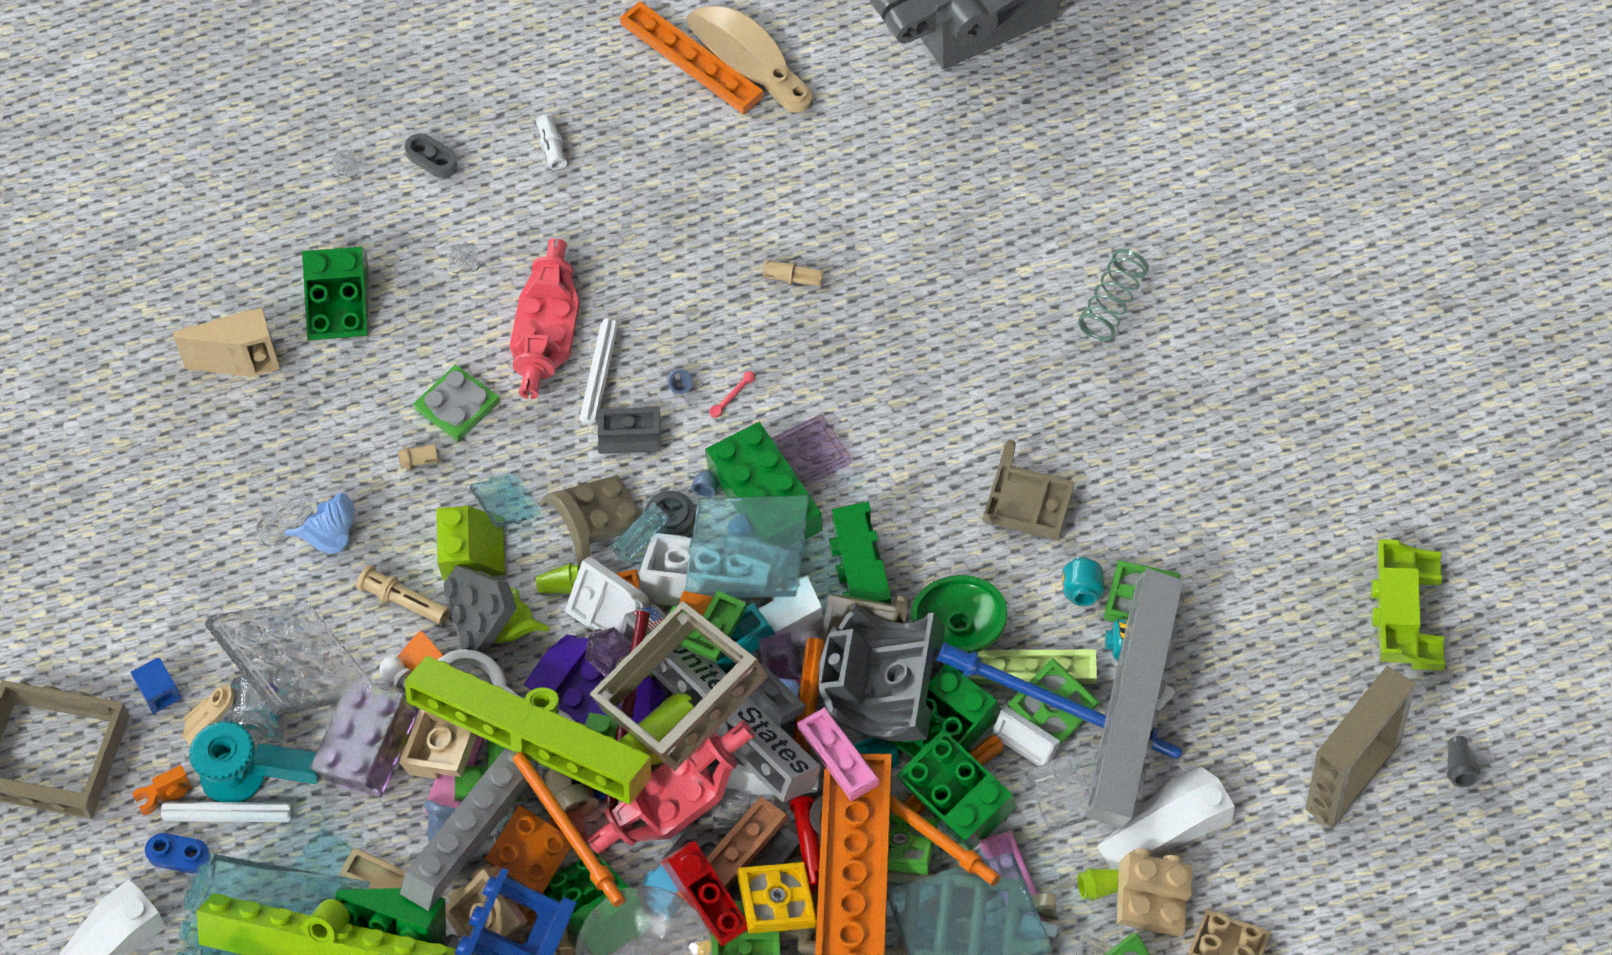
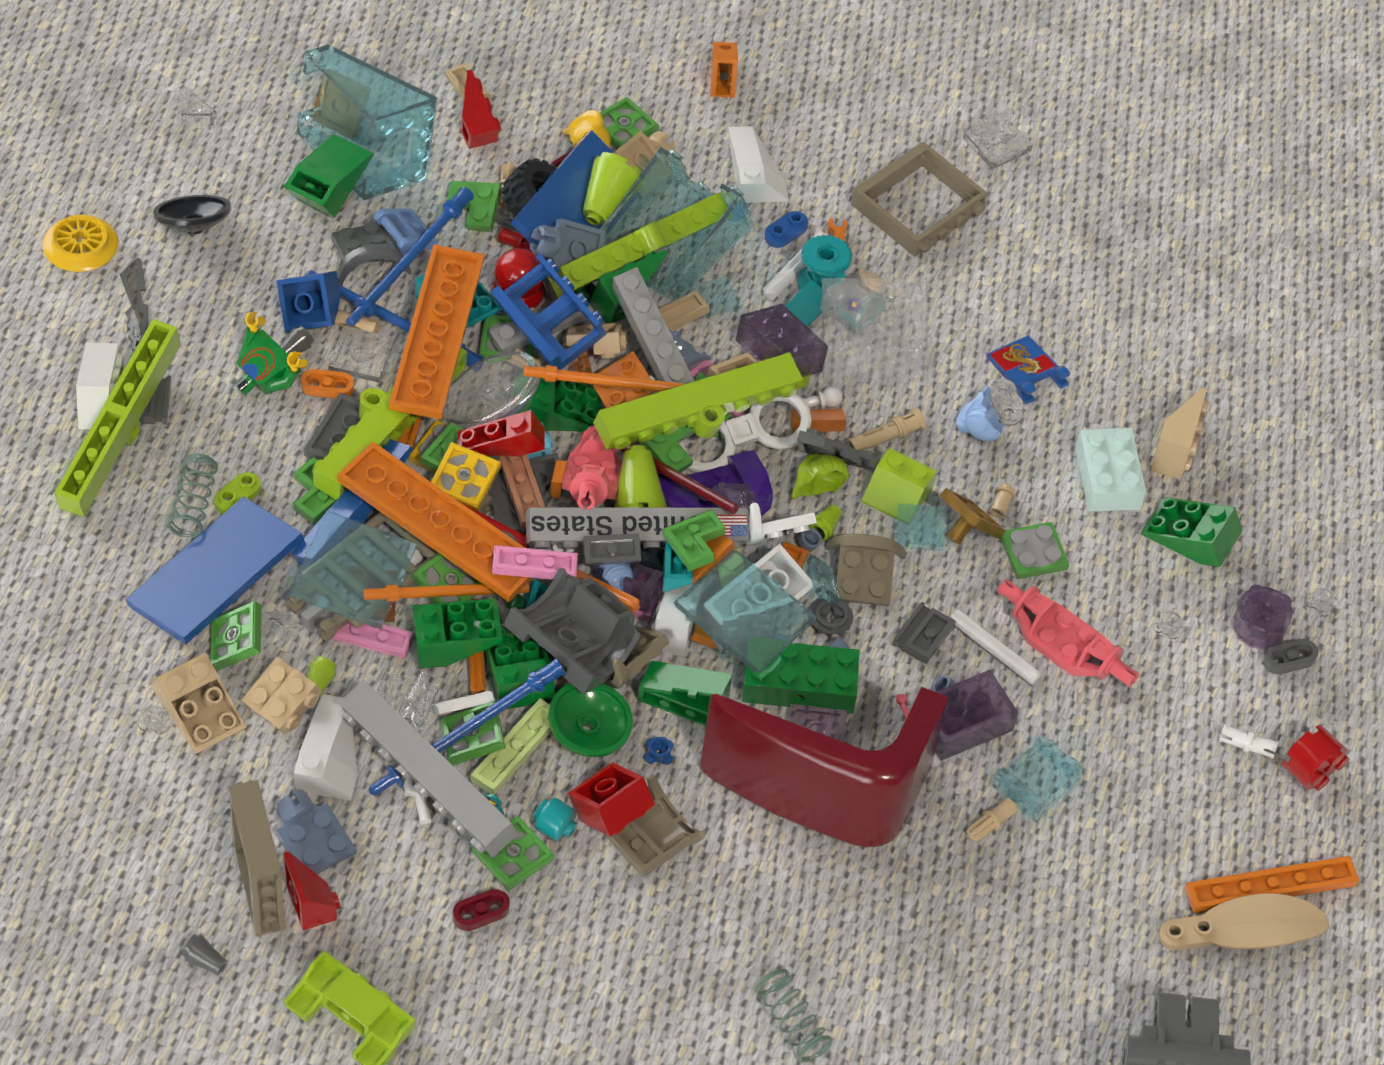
camera: 115 degrees right, 5 degrees down
(156, 685) = (922, 266): blue panel -> none
(218, 532) = (1025, 365): none -> blue flag
(313, 387) = (1110, 469): none -> light aqua brick
(406, 188) = (1262, 617): none -> clear purple brick
(466, 456) = (970, 517): none -> pearl gold tile
(542, 75) = (1316, 758): none -> red brick
(703, 340) = (974, 714): none -> clear purple brick
(704, 820) = (557, 479): none -> orange tile
(708, 713) = (620, 511): dark tan window -> none
(720, 263) = (1038, 778): none -> clear light blue panel
(845, 318) = (818, 779): none -> dark red piece
(938, 548) = (656, 744): none -> blue plate
(1031, 540) = (611, 799): none -> red brick
(1221, 581) = (479, 908): none -> dark red plate
(1269, 765) = (312, 832): none -> sand blue plate
(1333, 704) = (309, 894): none -> red slope

